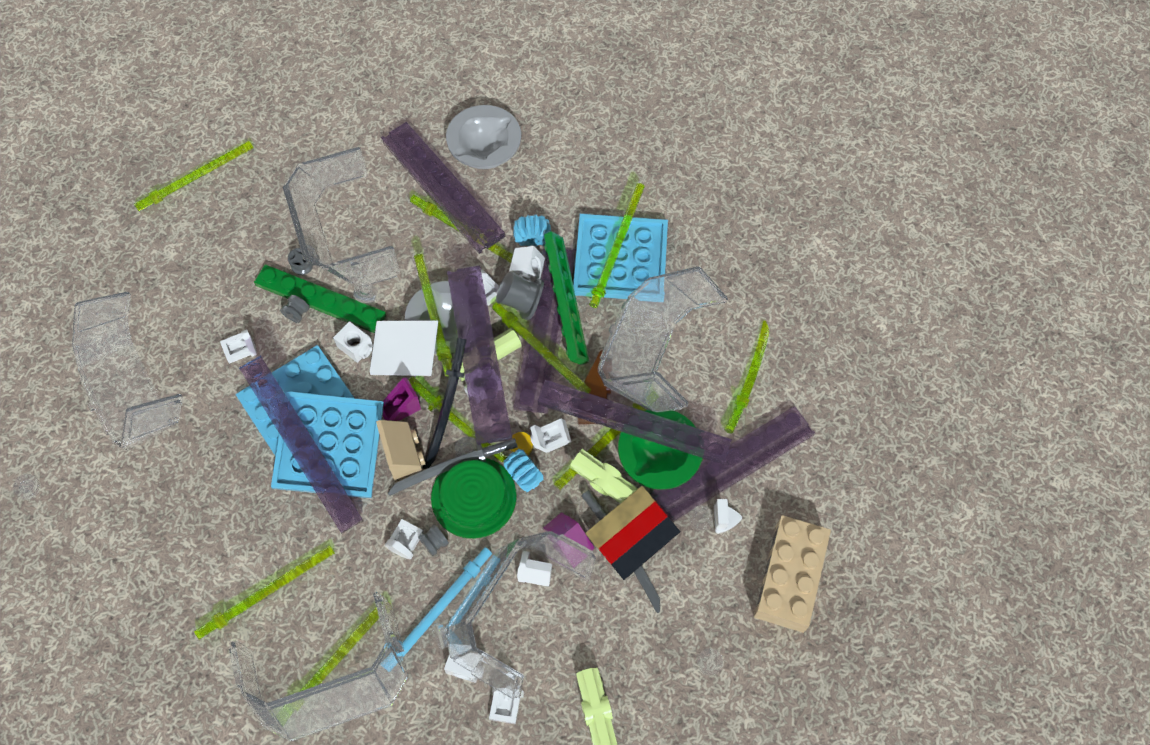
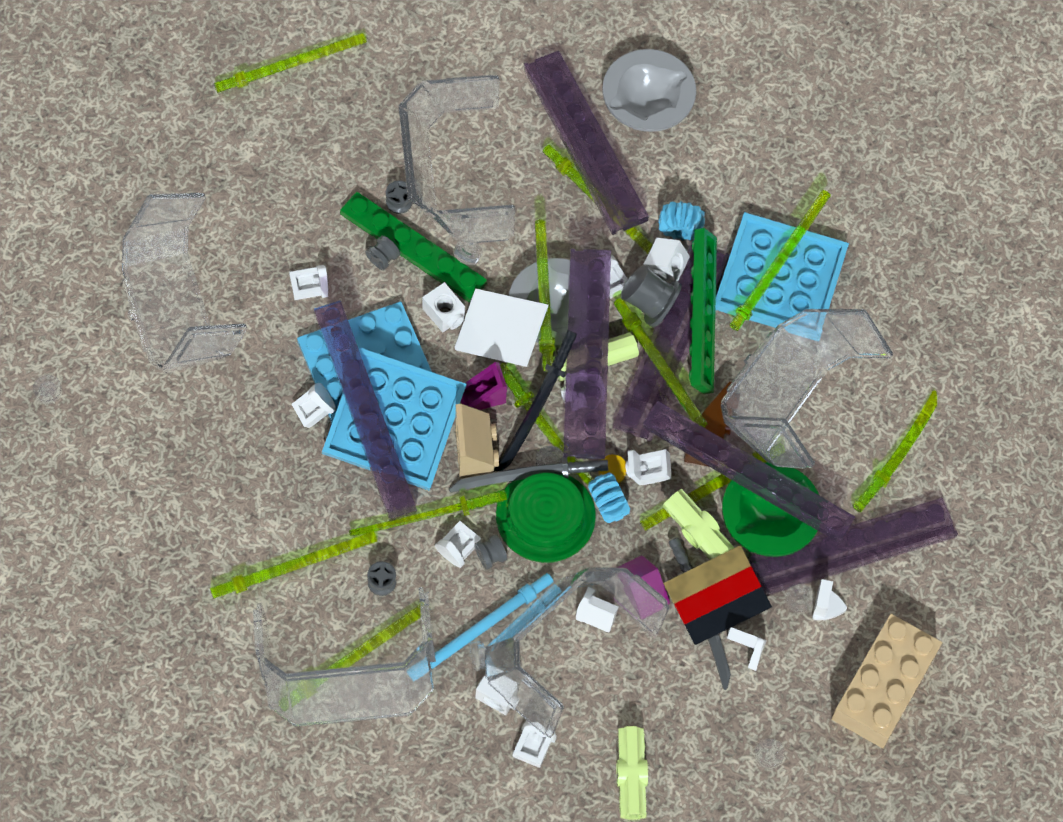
camera: 10 degrees right, 0 degrees up
(259, 448) = (314, 405): none -> white tile
(342, 581) = (381, 571): none -> dark grey wheel
(402, 504) = (464, 505): none -> clear neon green sword
(669, 566) = (750, 641): none -> white tile

